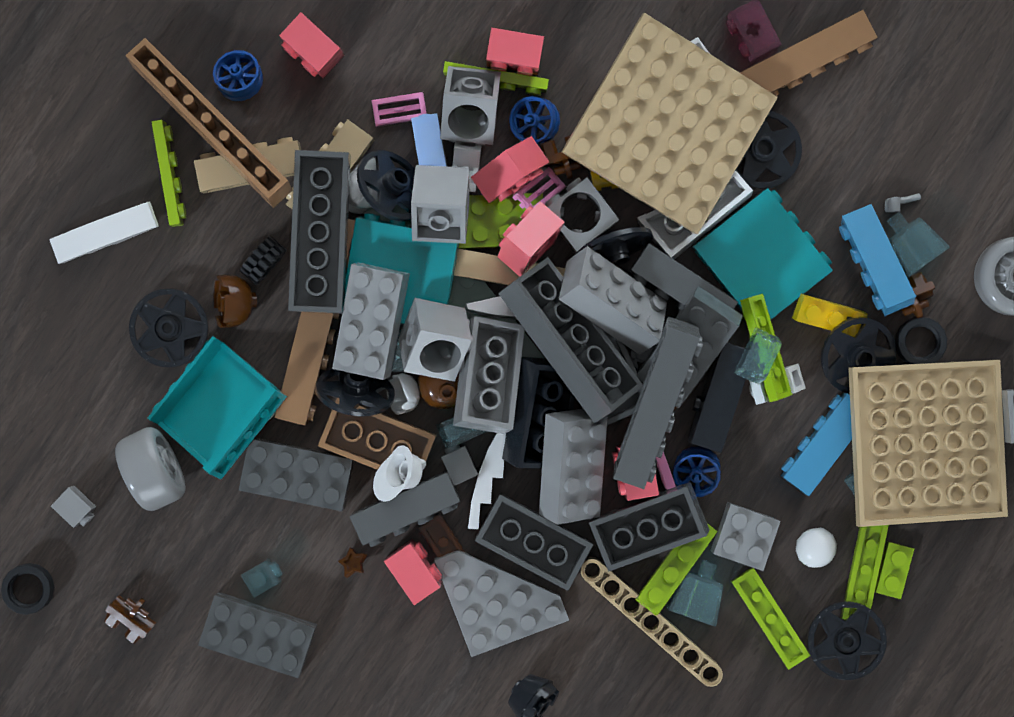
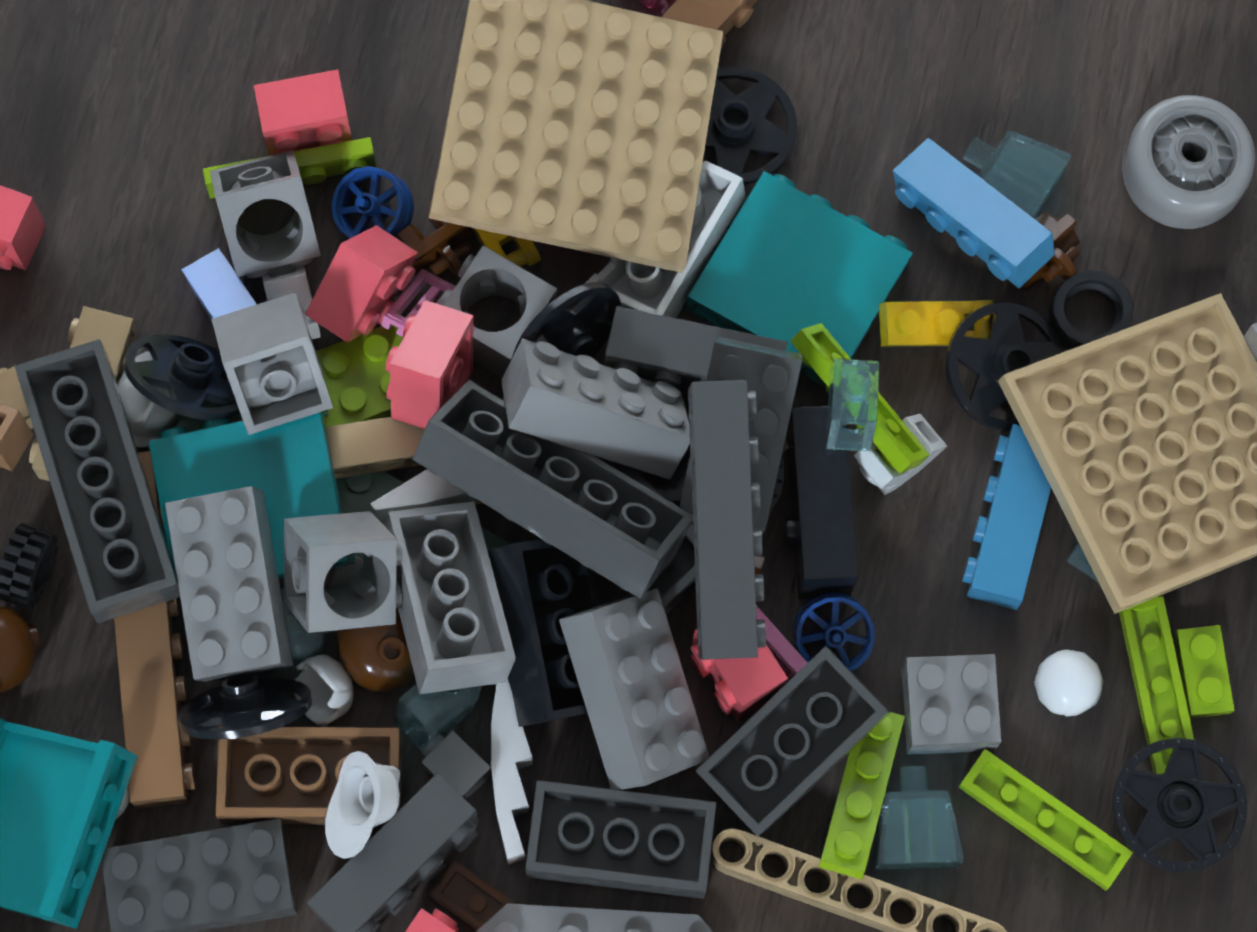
camera: 25 degrees left, 15 degrees down
(377, 113) = (149, 258): bright pink tile -> none
(893, 204) = (962, 130): light grey hand -> none

